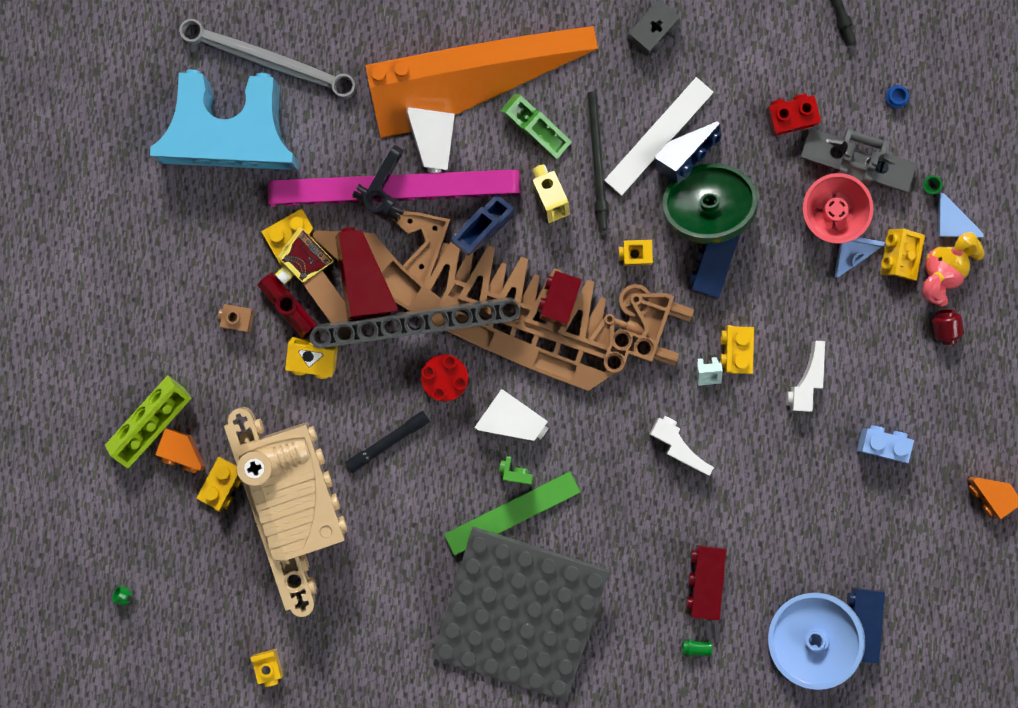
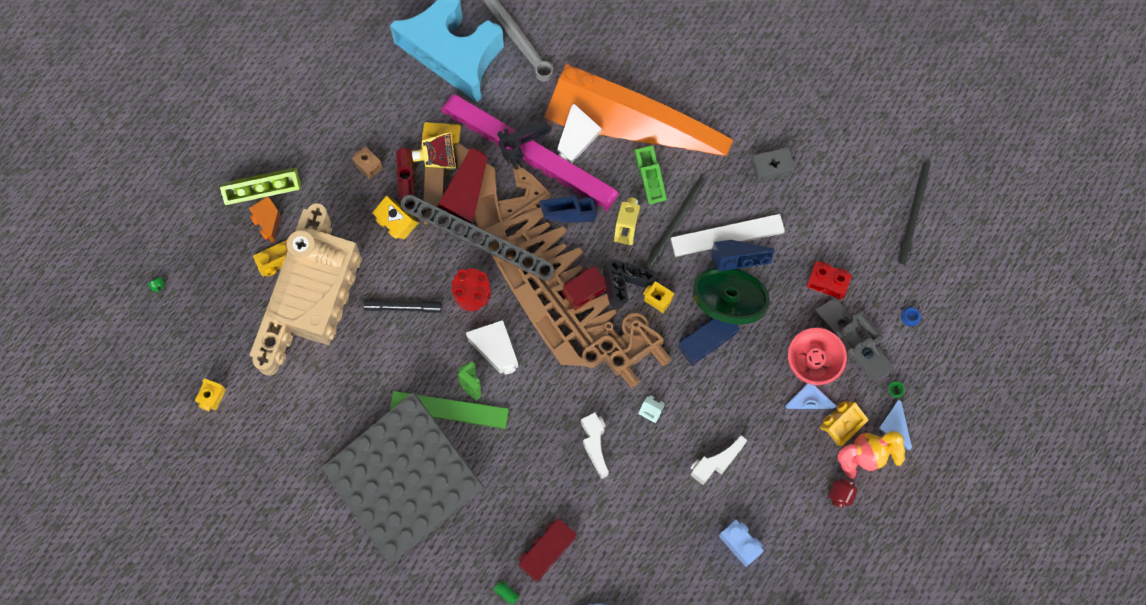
camera: 30 degrees right, 15 degrees down
(602, 285) = (617, 271): none -> black beam
(738, 349) = (682, 408): yellow bracket -> none

